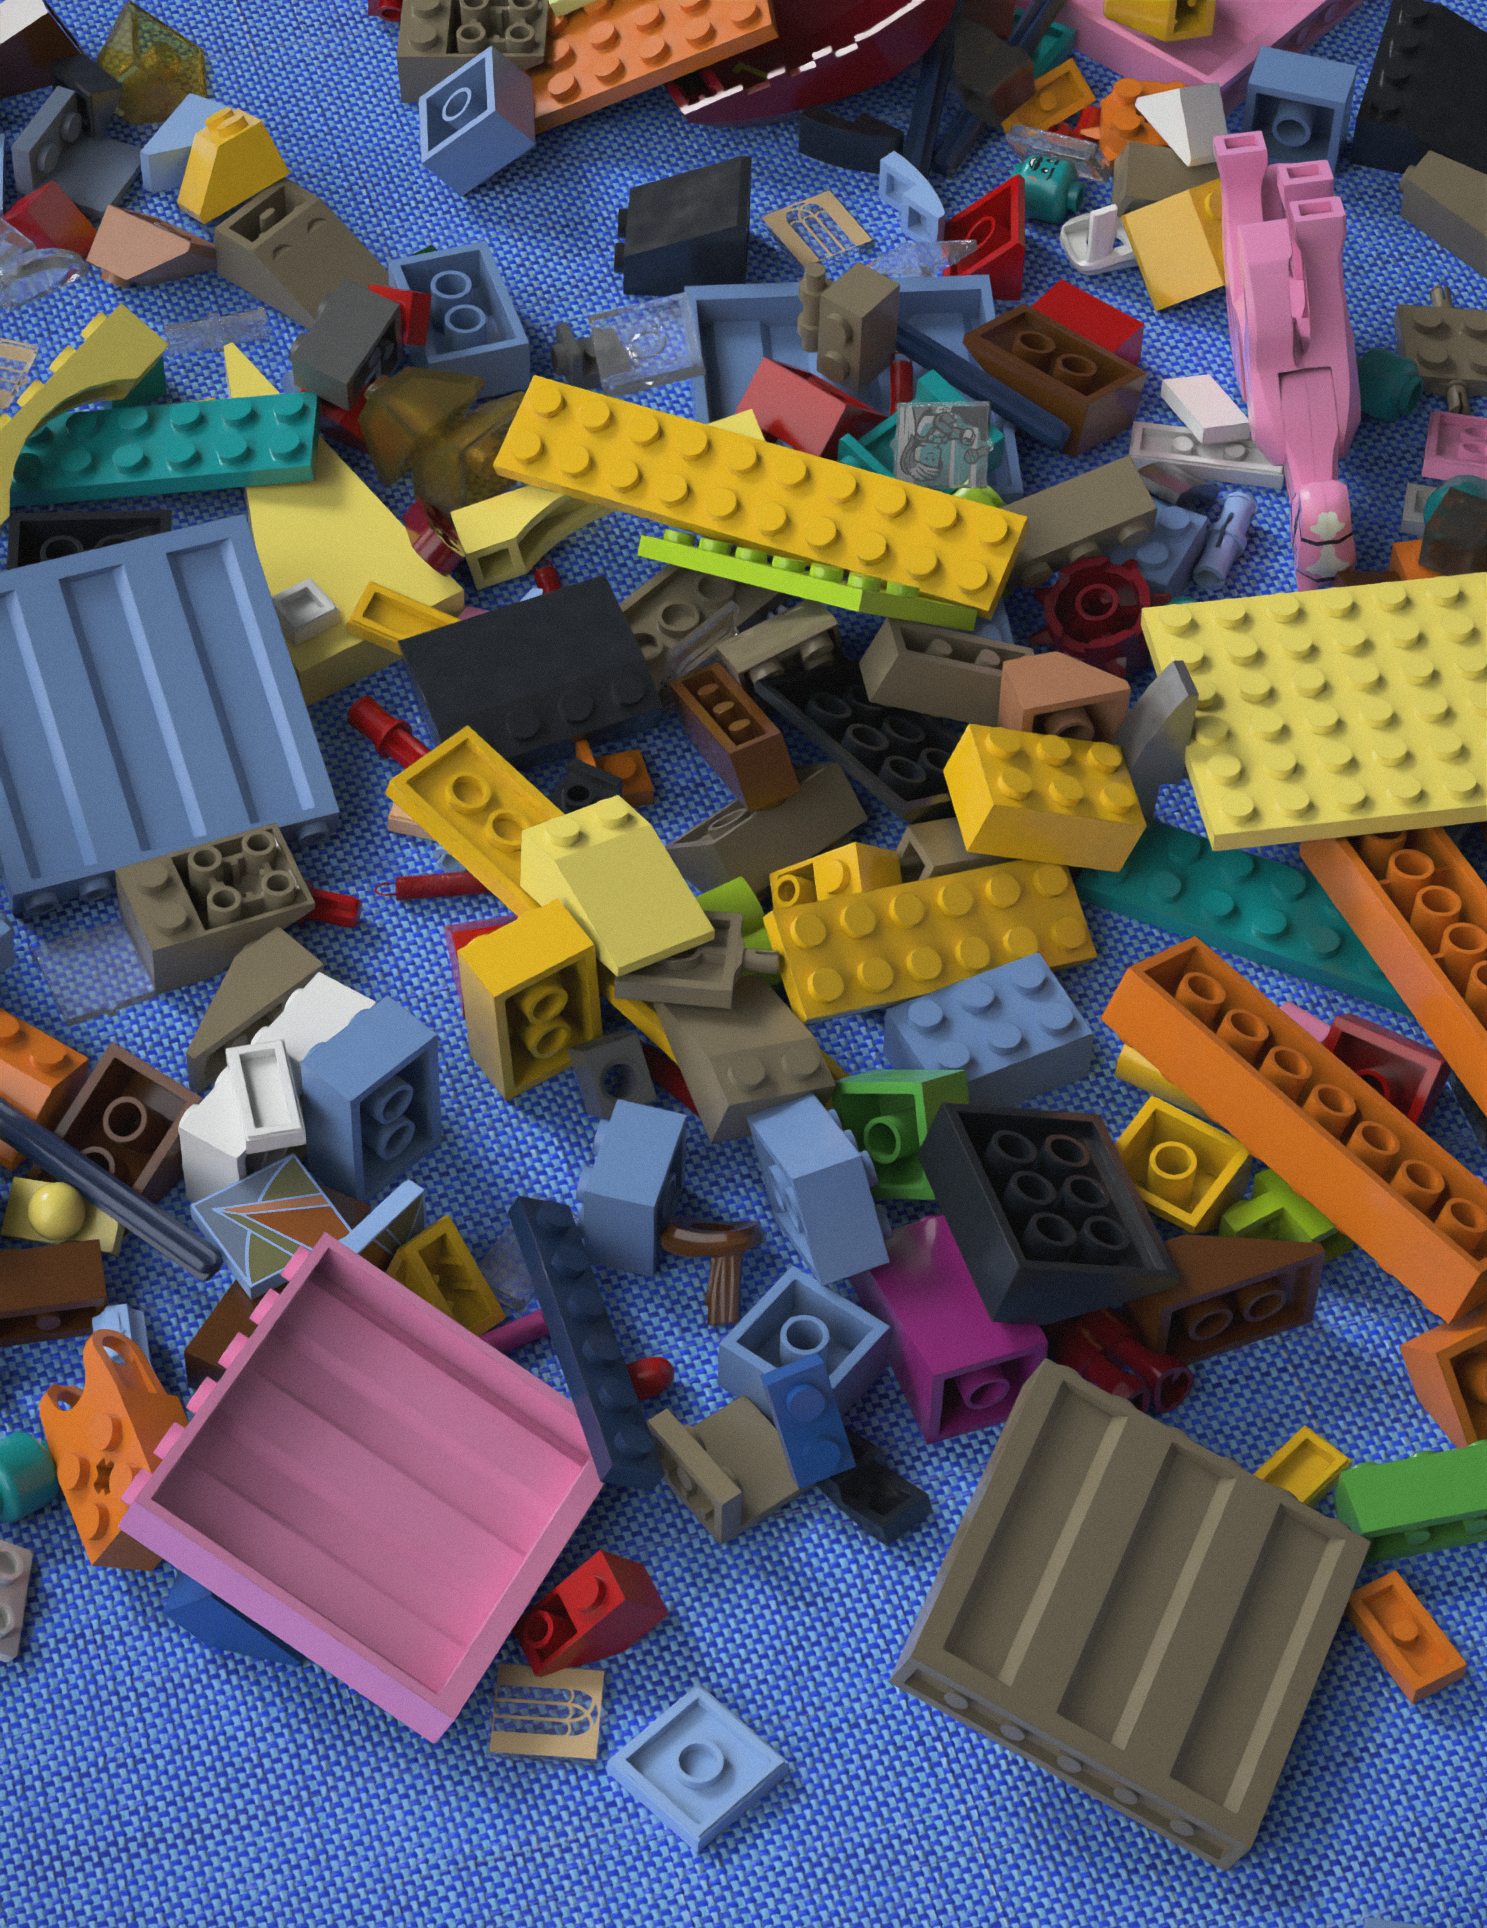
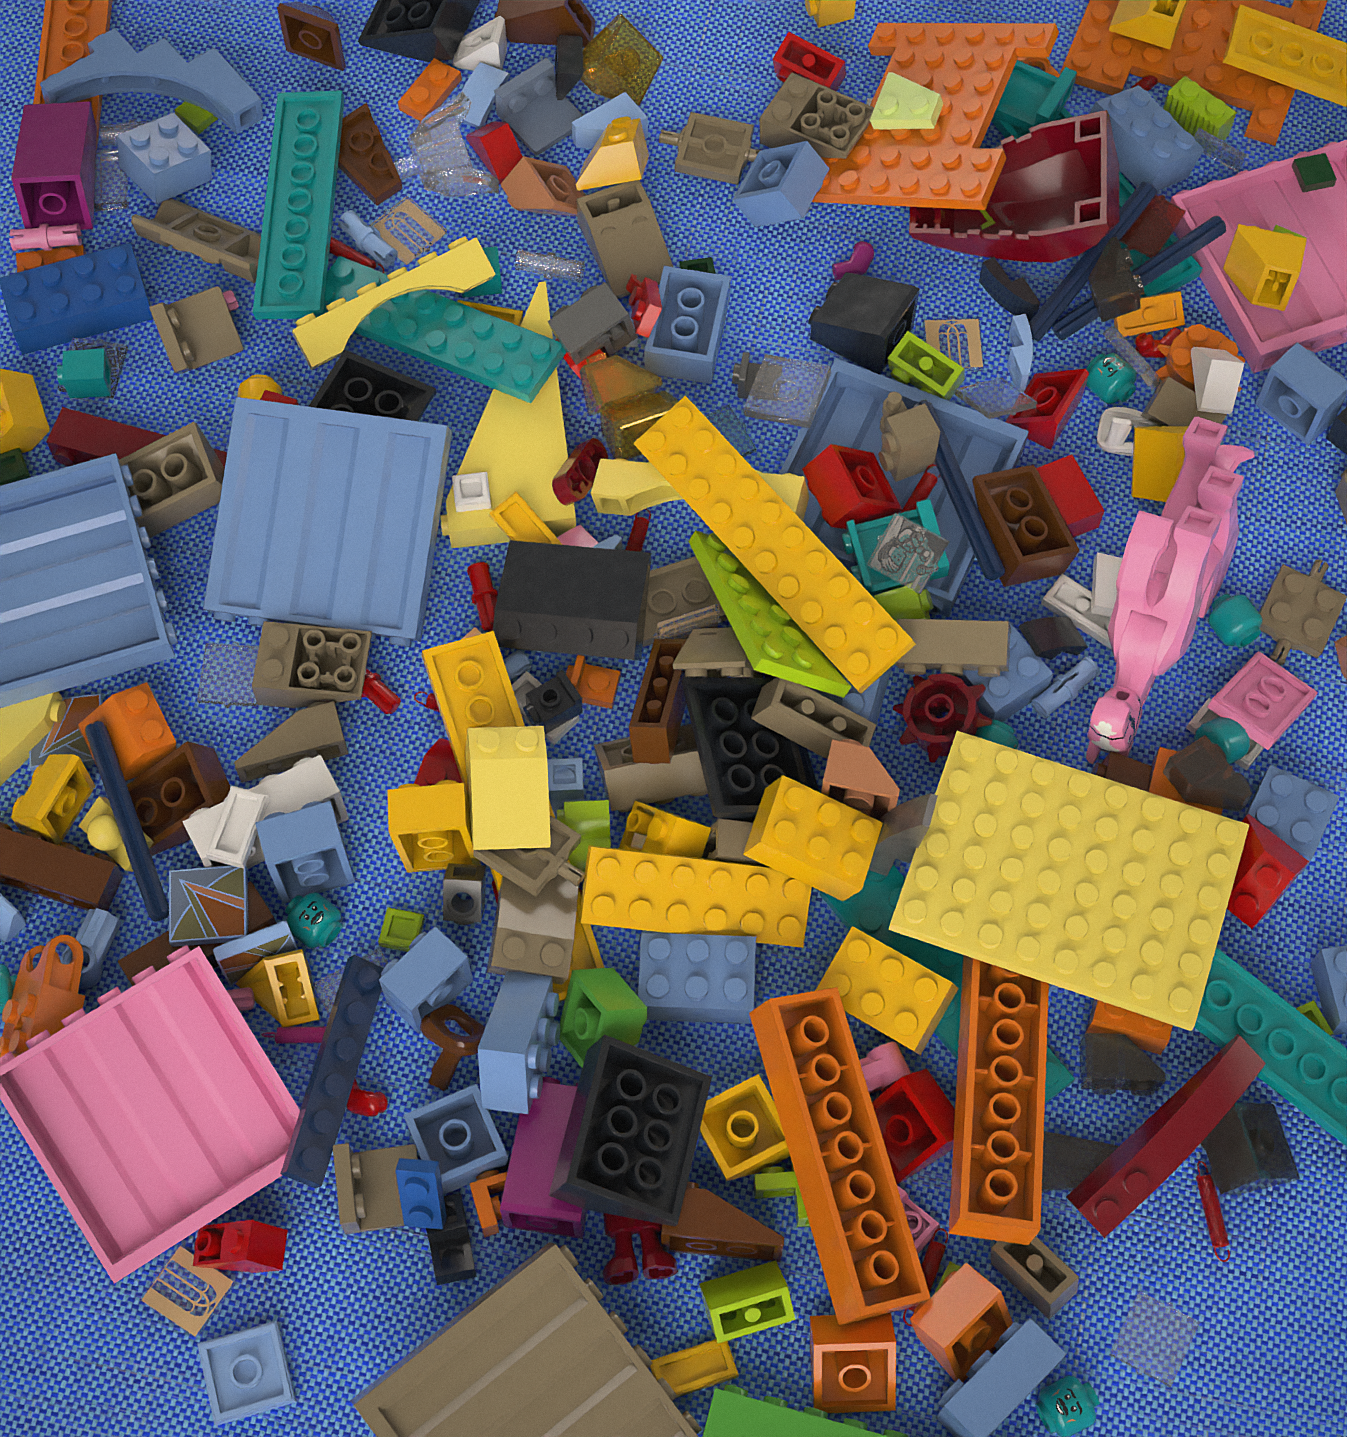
camera: 30 degrees right, 15 degrees up
(347, 123) = (712, 147): none -> dark tan plate
(442, 1191) = (313, 920): none -> teal head
(547, 1165) = (400, 929): none -> lime tile
(630, 173) = (858, 262): none -> magenta arm
(793, 243) = (925, 367): none -> lime brick
(890, 1417) = (486, 1207): none -> orange bracket
(1261, 927) = (888, 990): none -> yellow brick
(1309, 1364) = (747, 1301): none -> lime brick

